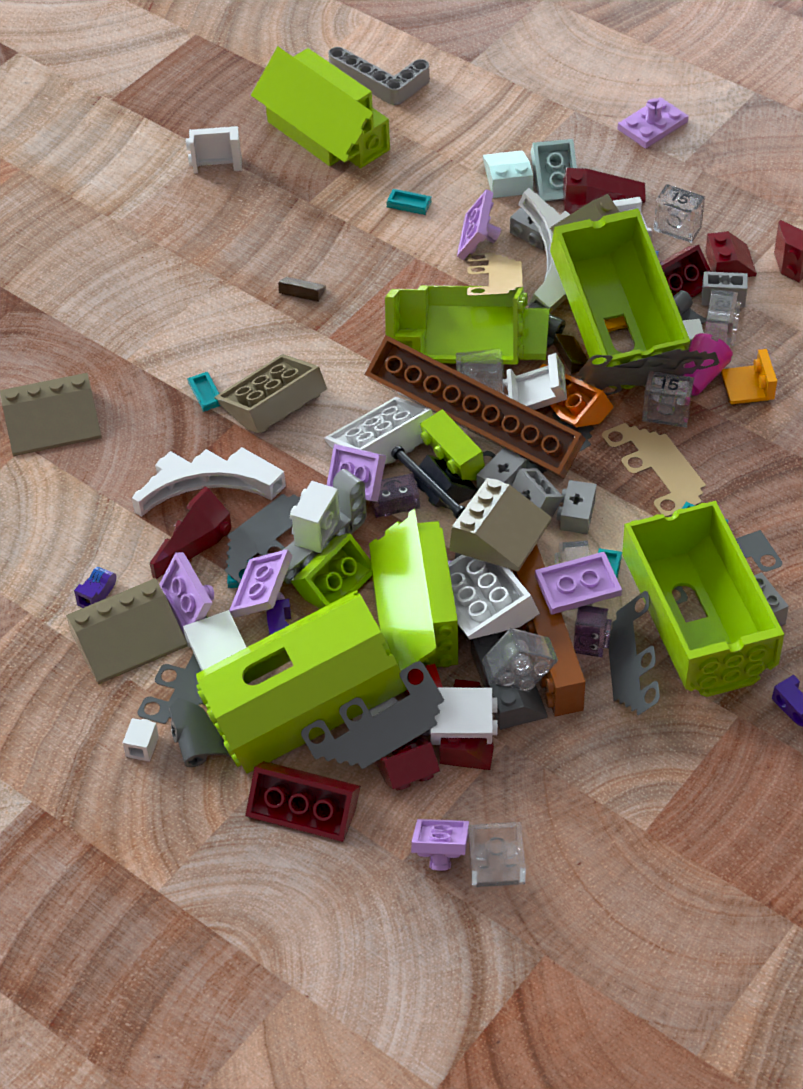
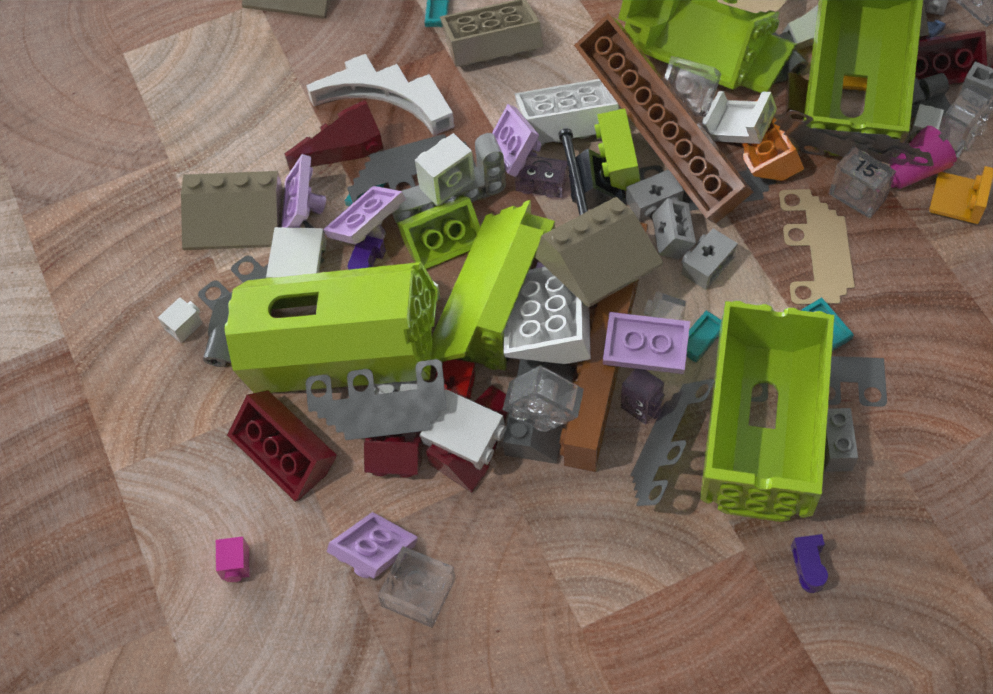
camera: 30 degrees right, 10 degrees up
(95, 587) = (231, 158): dark purple leg -> none
(320, 906) = (232, 559): none -> dark pink brick

